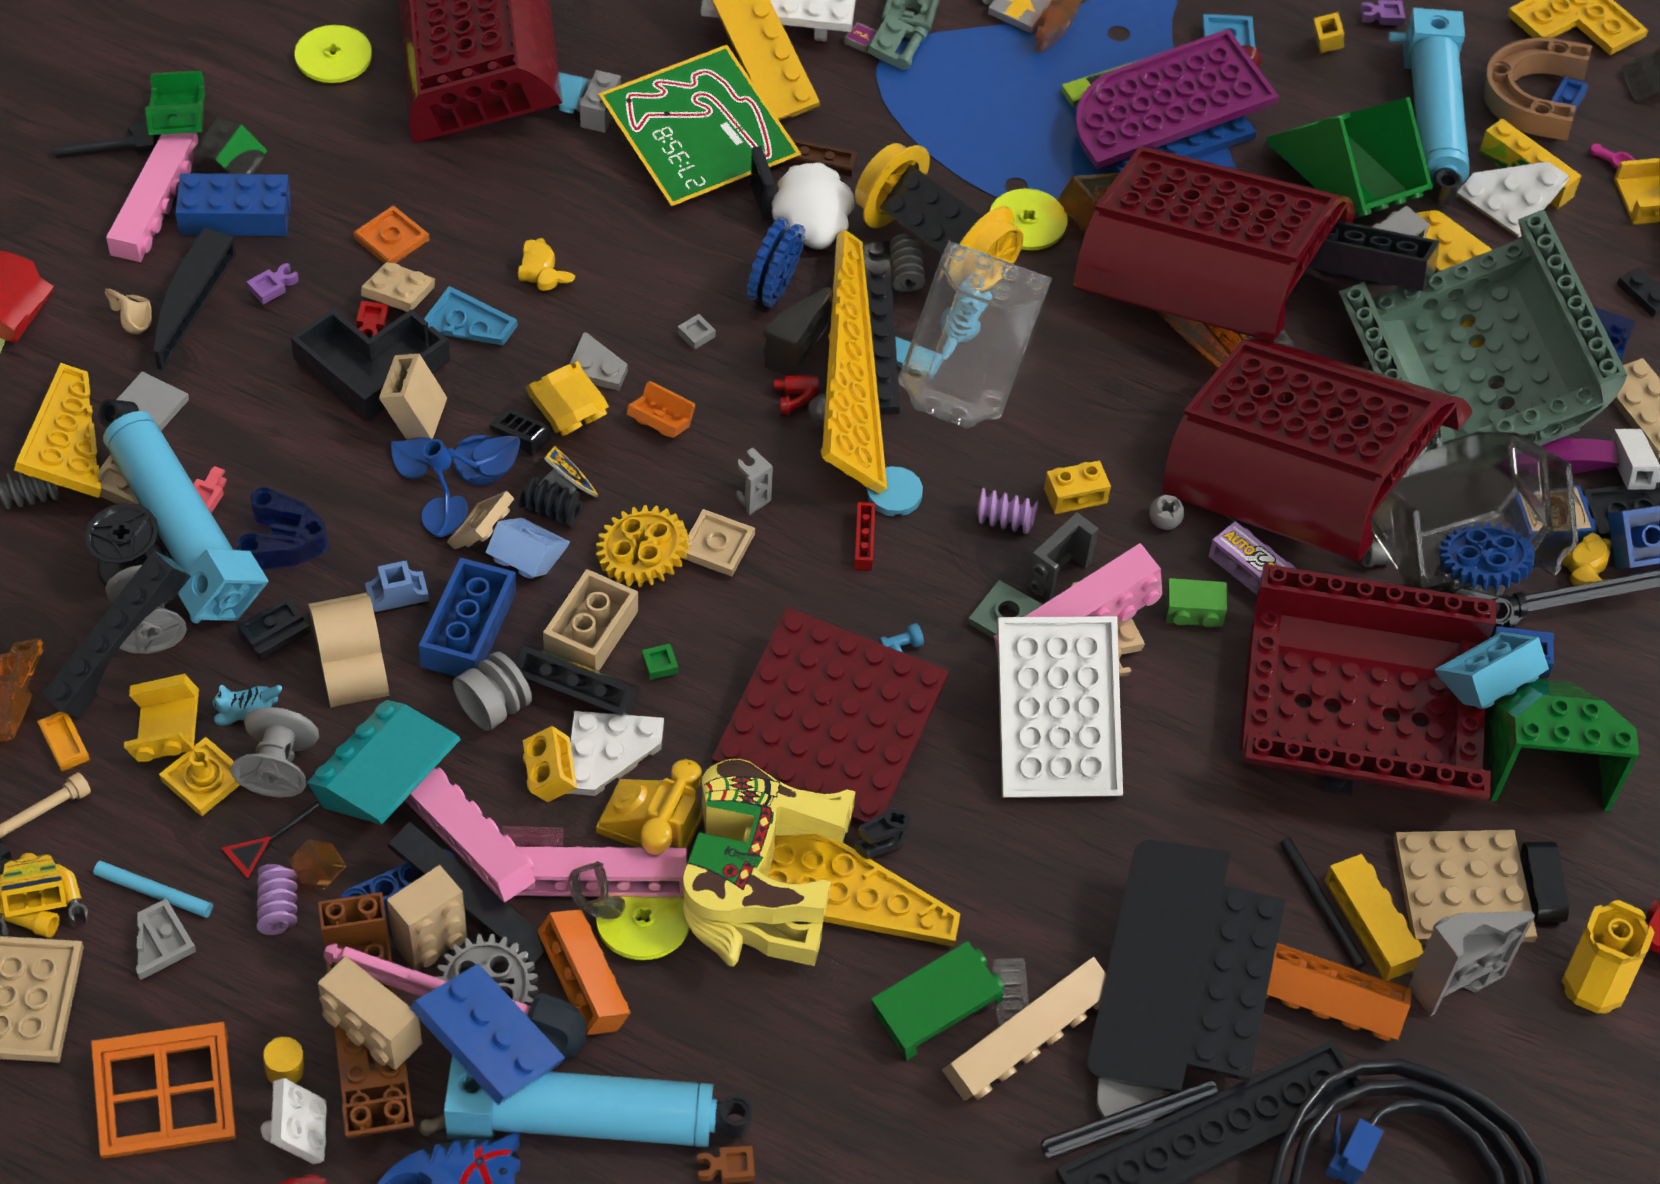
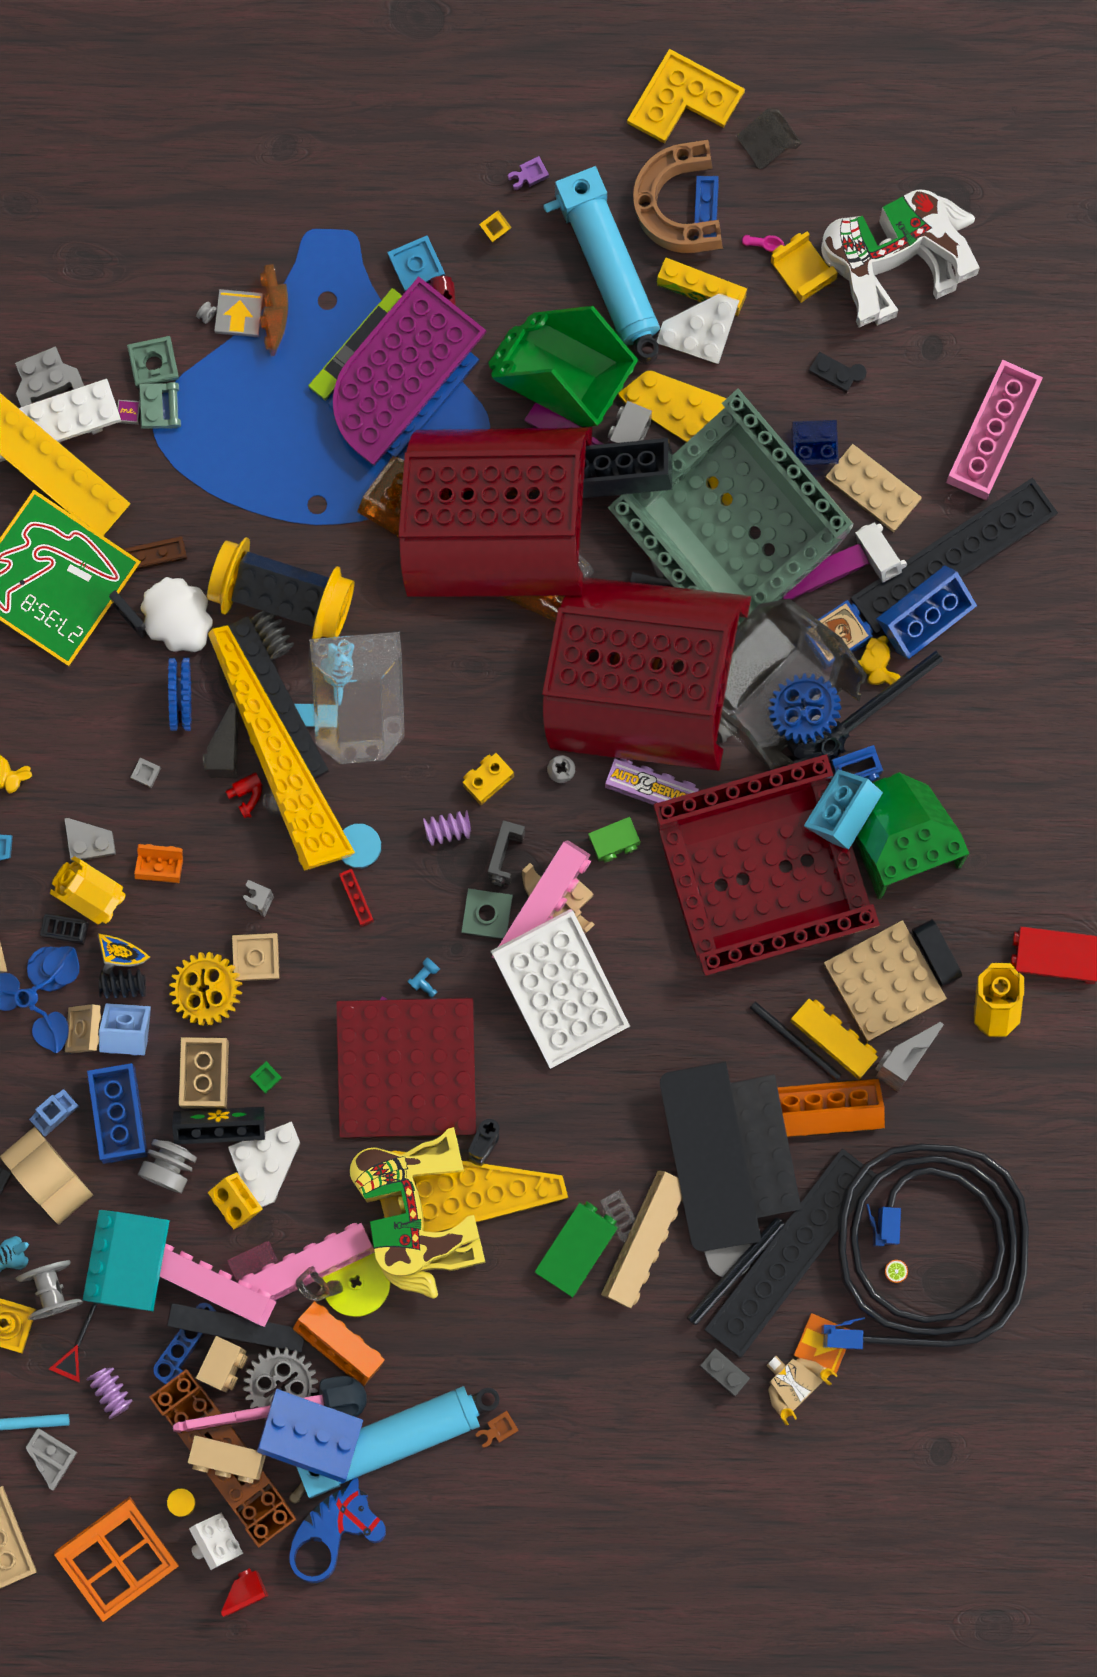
camera: 20 degrees left, 25 degrees up
(317, 863) = (122, 1354): clear orange brick -> none
(655, 811) = (324, 1203): yellow piece -> none
(1047, 217) = (348, 552): neon yellow piece -> none

